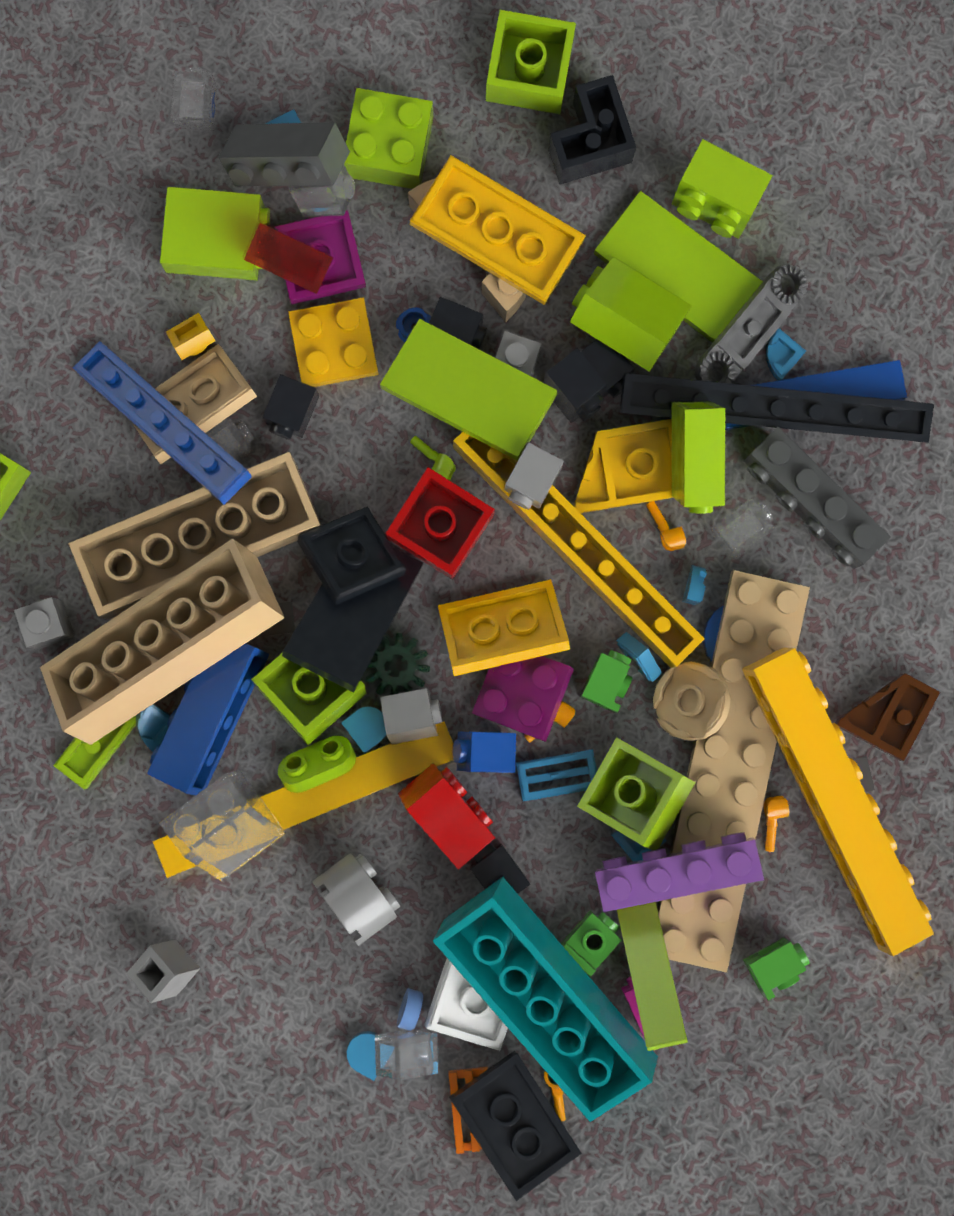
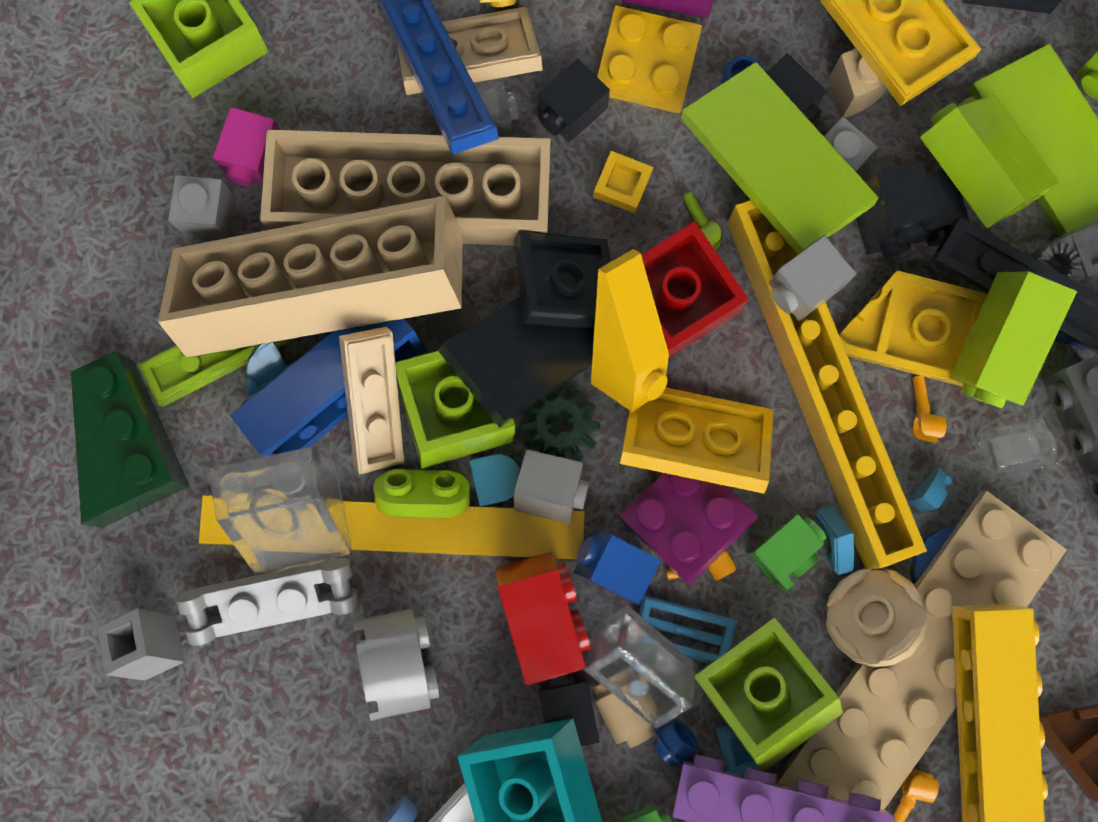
camera: 30 degrees right, 5 degrees down
(53, 560) = (242, 147): none -> dark pink brick
(71, 830) = (119, 443): none -> dark green wedge
(240, 895) = (268, 600): none -> light grey plate
(248, 713) = (372, 399): none -> tan tile
(359, 453) = (623, 182): none -> yellow plate
(417, 579) = (628, 335): none -> yellow slope
(536, 817) = (641, 667): none -> clear brick
(539, 852) = (620, 719): none -> tan brick
(585, 858) = (675, 742): none -> blue plate

